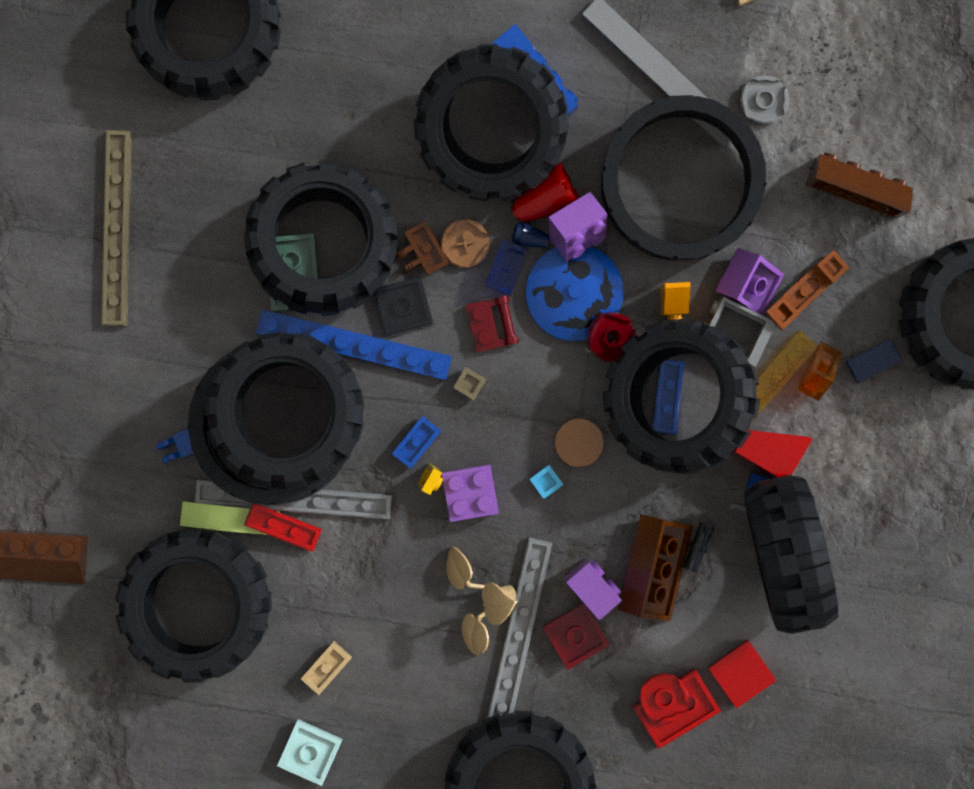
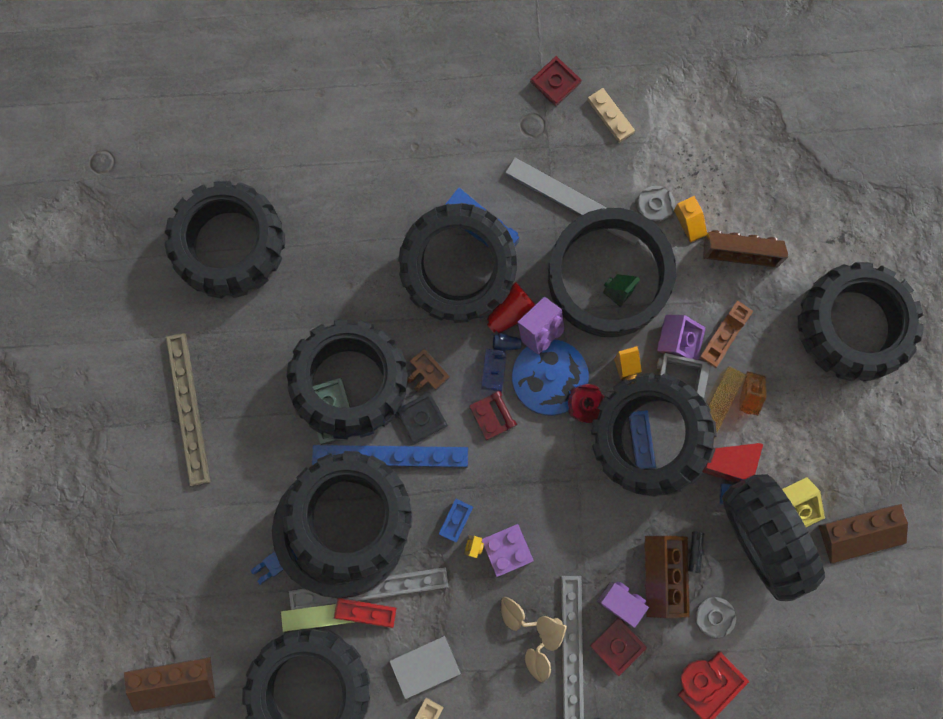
camera: 10 degrees left, 10 degrees down
(340, 606) = (425, 667): none -> light grey tile
(465, 243) = (458, 359): medium nougat tile -> none
(469, 383) = (486, 465): dark tan plate -> none
(546, 481) = (564, 528): medium azure plate -> none
(579, 442) = (582, 491): medium nougat tile -> none
(689, 200) = (620, 288): none -> dark green slope
(701, 628) = (715, 617): none -> light grey tile
(742, 673) = (757, 646): red tile -> none
(804, 131) = (691, 218): none -> light orange slope
(842, 519) = (806, 500): none -> light yellow slope
(873, 361) = (791, 376): dark blue tile -> none
(908, 571) = (864, 533): none -> reddish brown slope

